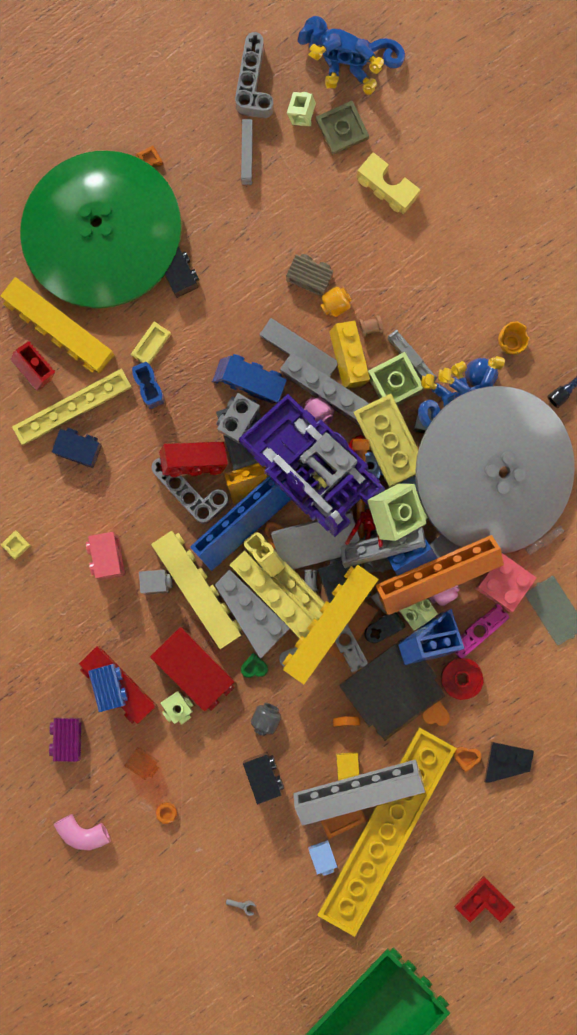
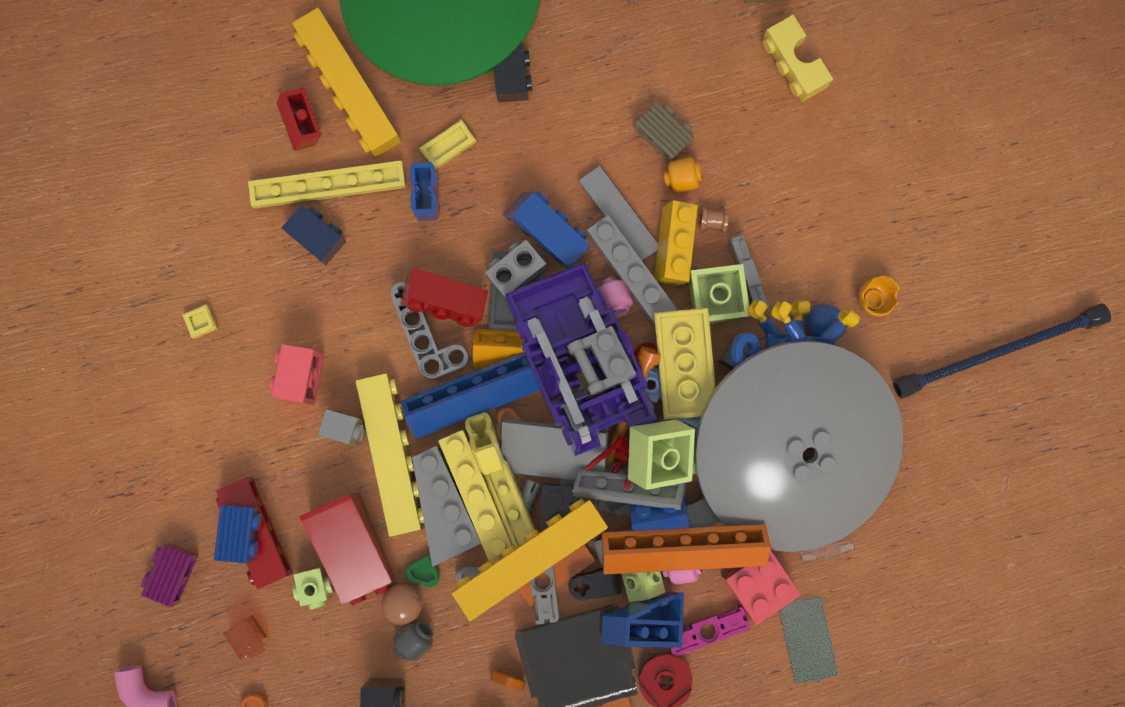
camera: 20 degrees right, 0 degrees up
(247, 696) = (401, 604): none -> nougat hair

